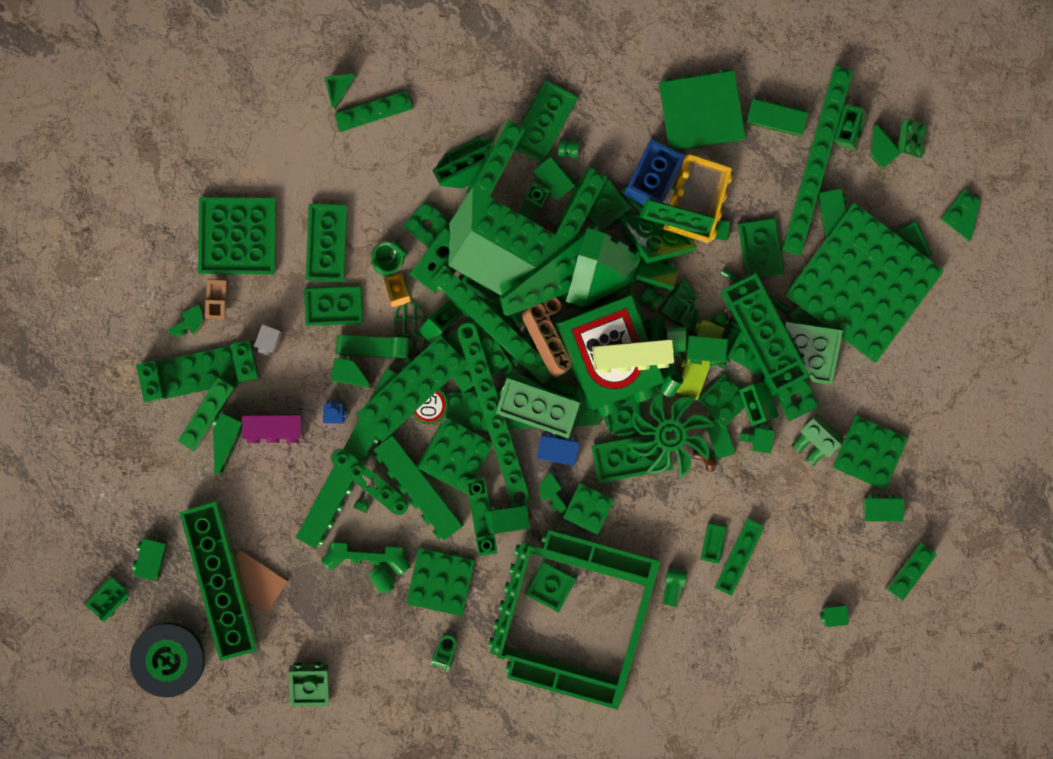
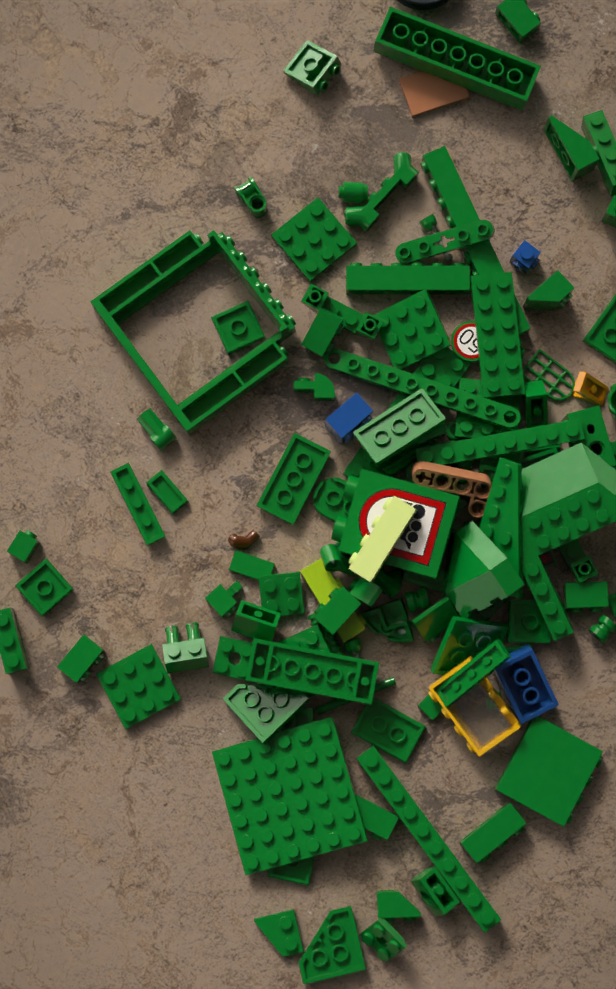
camera: 120 degrees right, 5 degrees down
(272, 428) = (551, 195): magenta brick -> none
(373, 346) = (556, 332): green beam -> none
(588, 508) = (279, 407): green brick -> none
(692, 422) = (299, 525): green piece -> none
(852, 577) = (44, 587): none -> green plate
(946, 169) = (333, 949): none -> green plate

